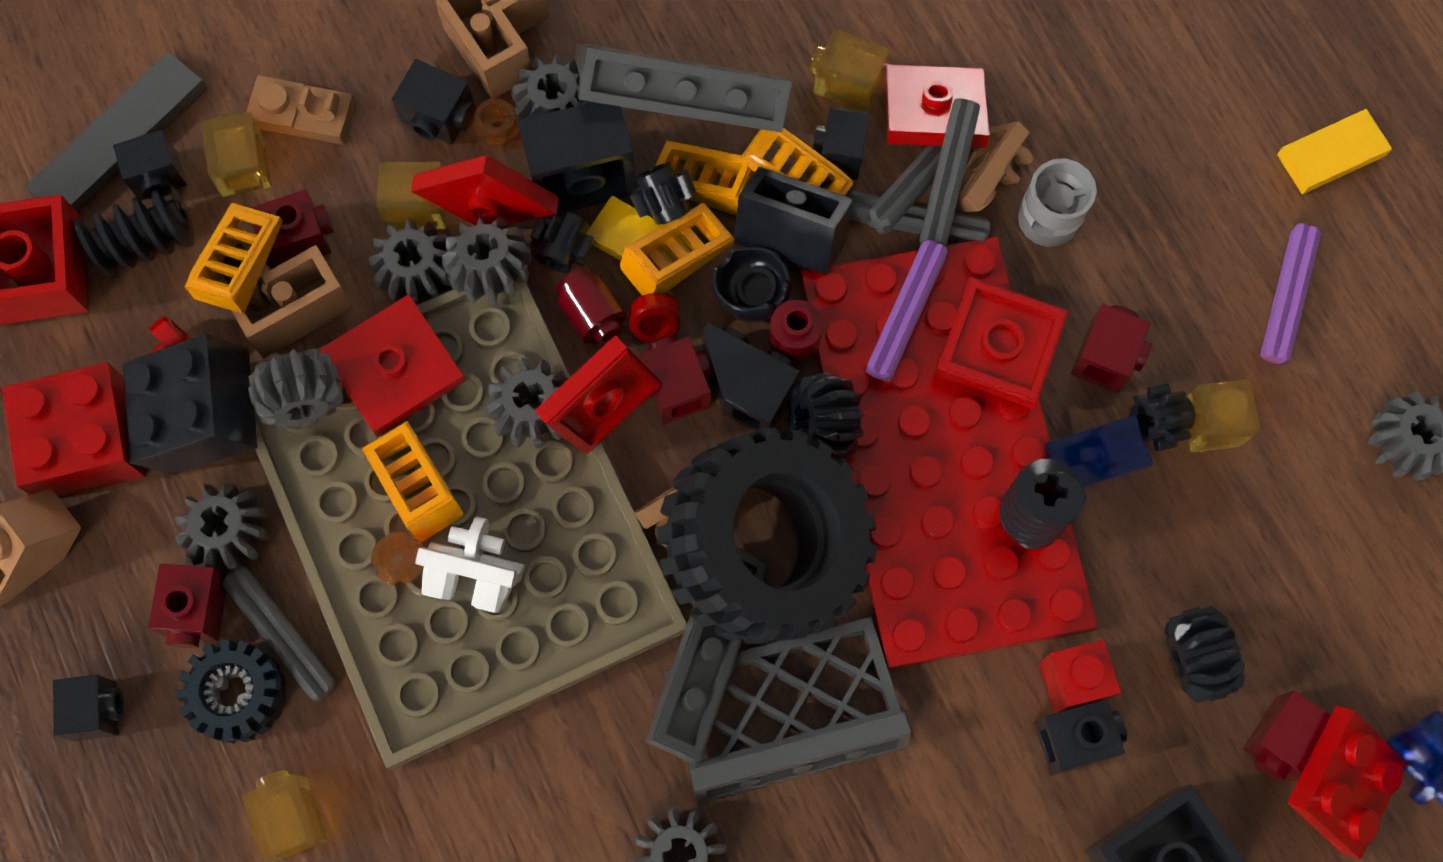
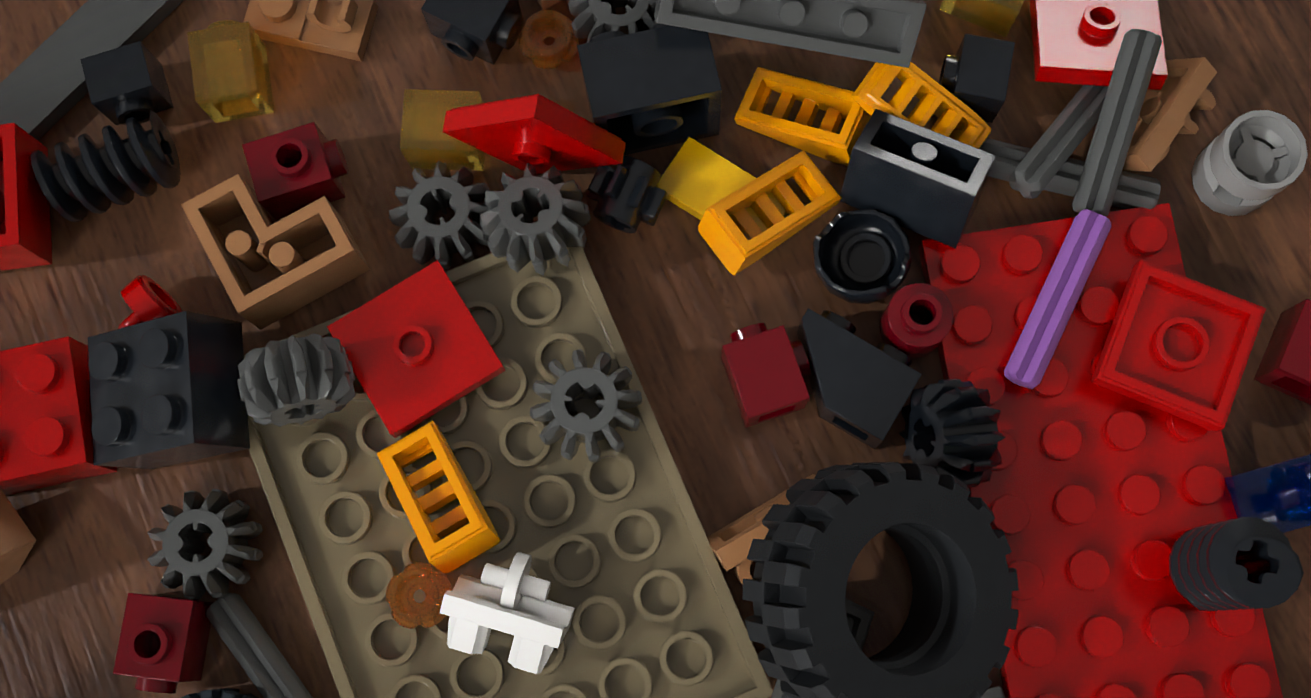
camera: 10 degrees right, 5 degrees up
(237, 294) = (192, 220): light orange slope -> none
(590, 306) = (660, 278): dark red brick -> none
(599, 396) = (673, 407): red plate -> none
(654, 317) = (739, 294): red tile -> none
(663, 193) = (754, 138): black gear -> none

